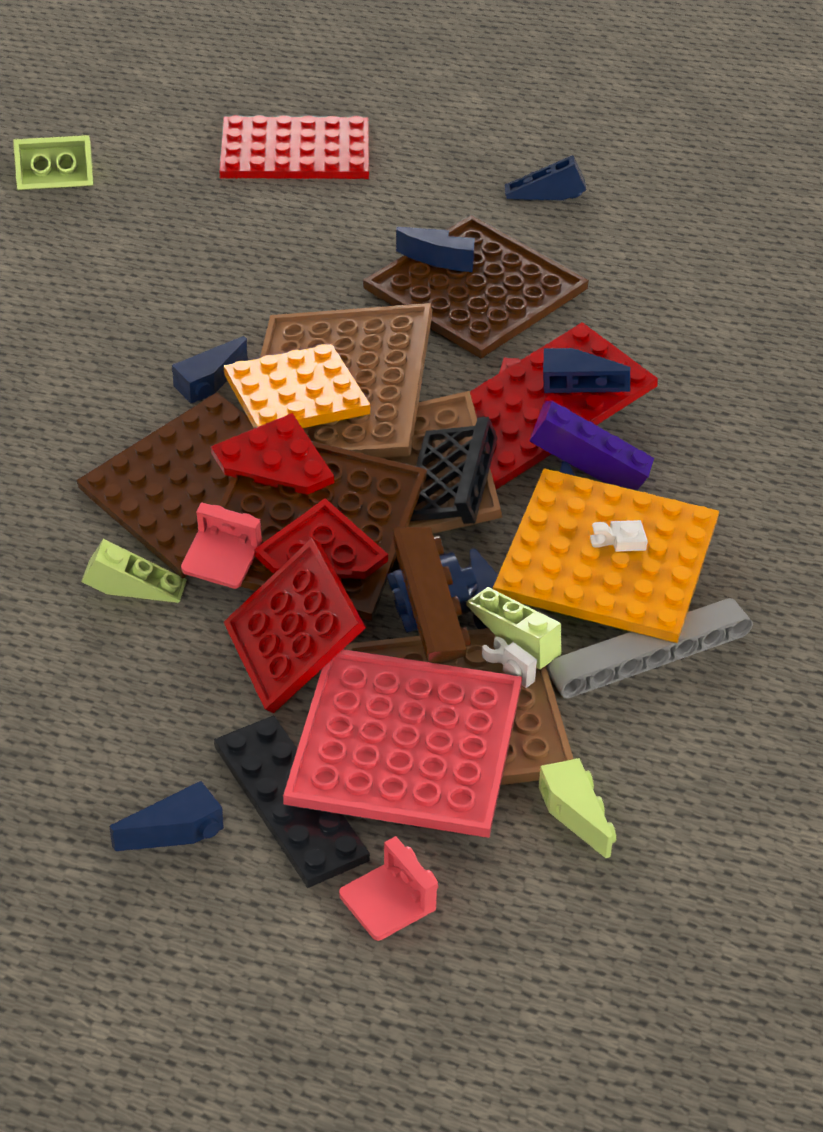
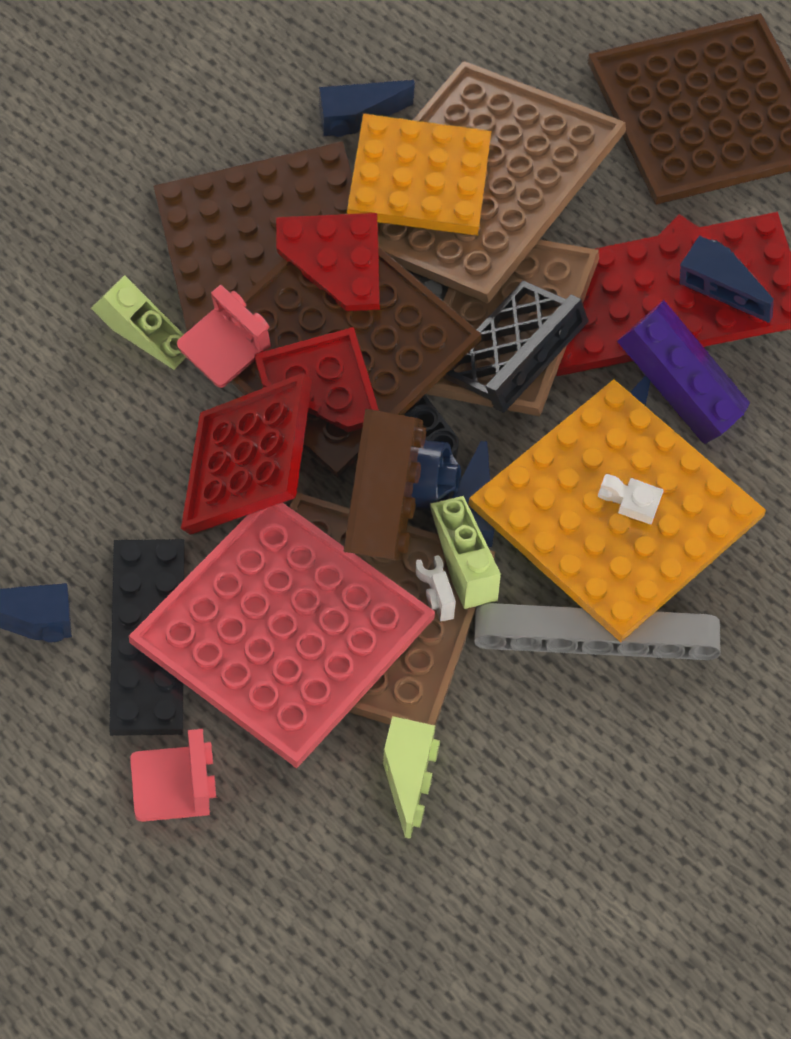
camera: 25 degrees right, 15 degrees up
(436, 248) = (687, 48): dark blue slope -> none

